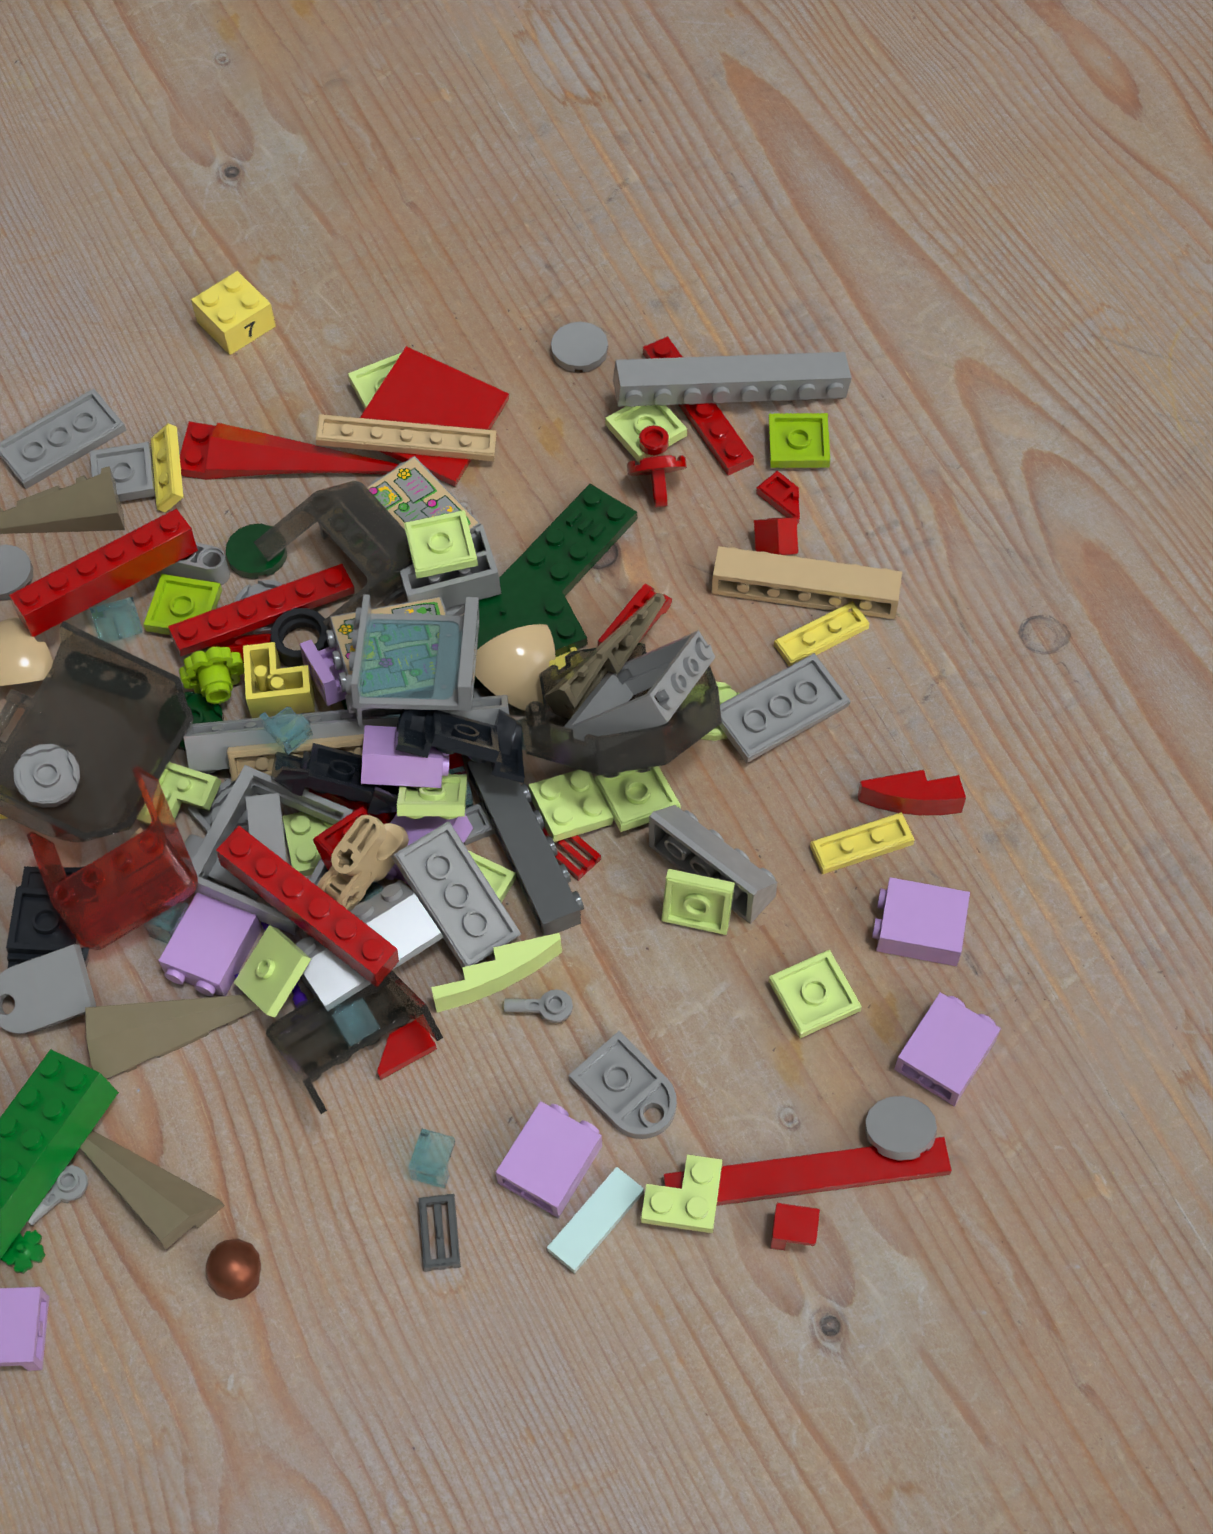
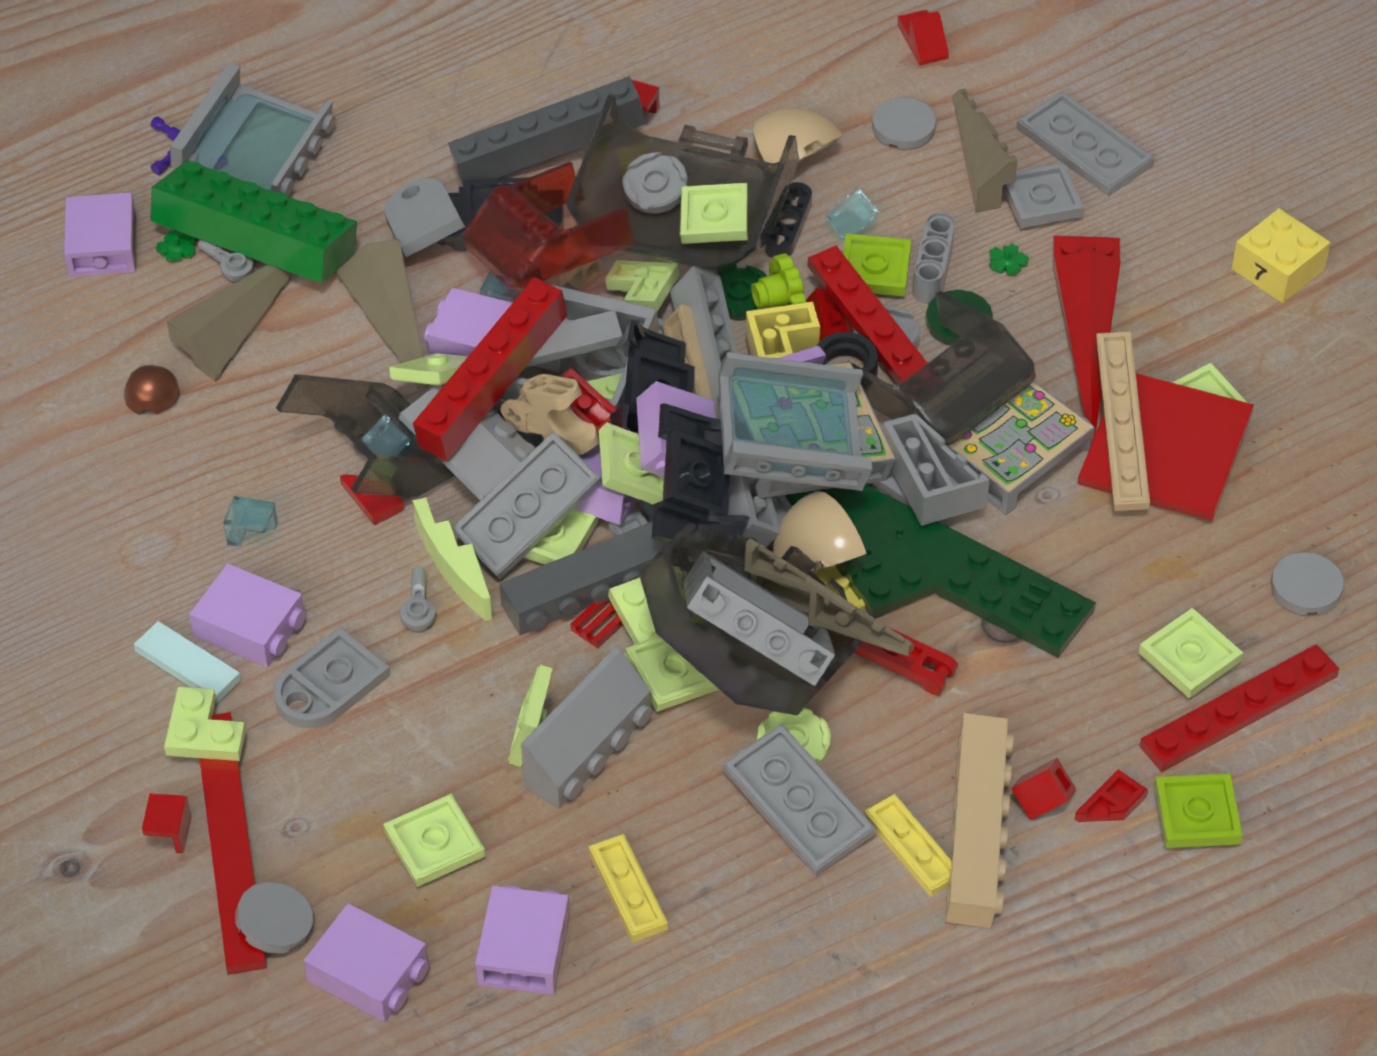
camera: 85 degrees right, 10 degrees down
(104, 572) = (886, 180): red brick -> none
(104, 723) = (714, 213): none -> yellowish green plate
(166, 468) = (1054, 227): light yellow tile -> none
(193, 508) = (1007, 260): none -> green plant
(287, 729) = (700, 337): clear light blue panel -> none
(440, 544) = (948, 438): yellowish green plate -> none
(442, 1262) = (180, 545): dark grey tile -> none
(653, 440) = (1161, 653): red tile -> none
(657, 467) = (1109, 659): red tile -> none
(731, 379) = (1268, 728): light grey brick -> none
(914, 794) = (690, 934): red slope -> none

